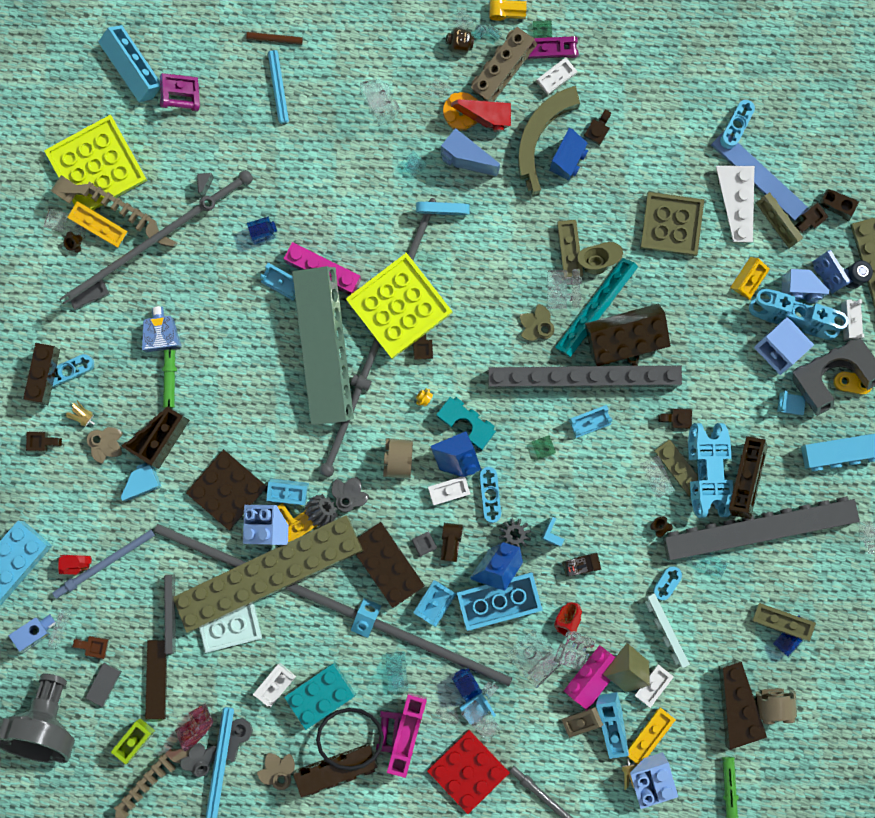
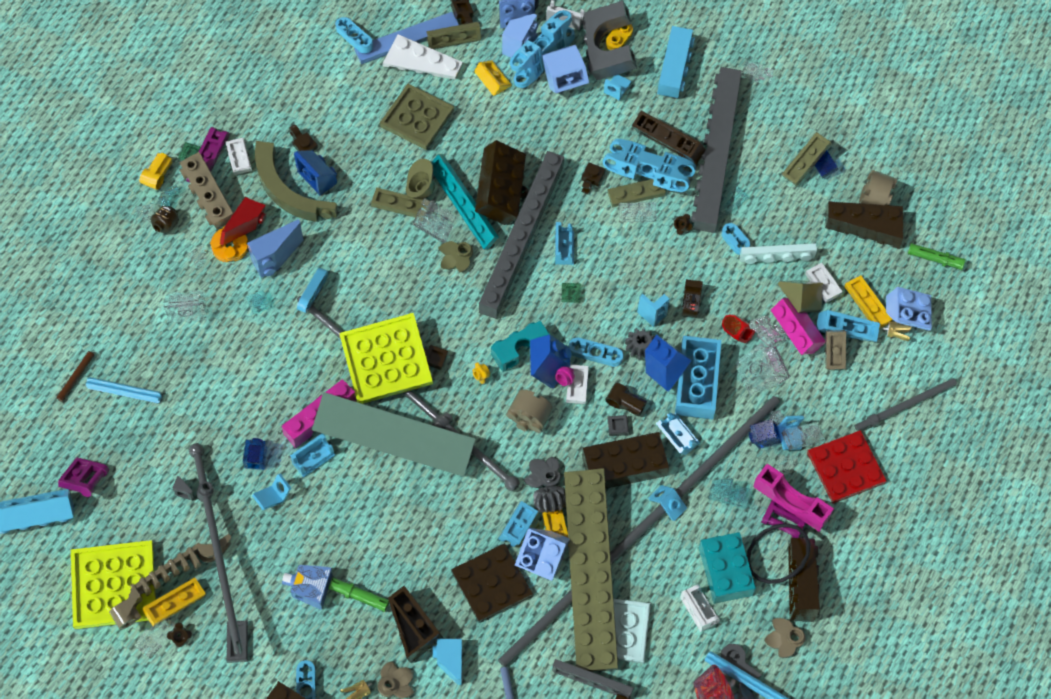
camera: 70 degrees left, 20 degrees down
(229, 262) = (272, 495): none -> medium azure bracket
(448, 477) = (565, 376): none -> dark pink plate

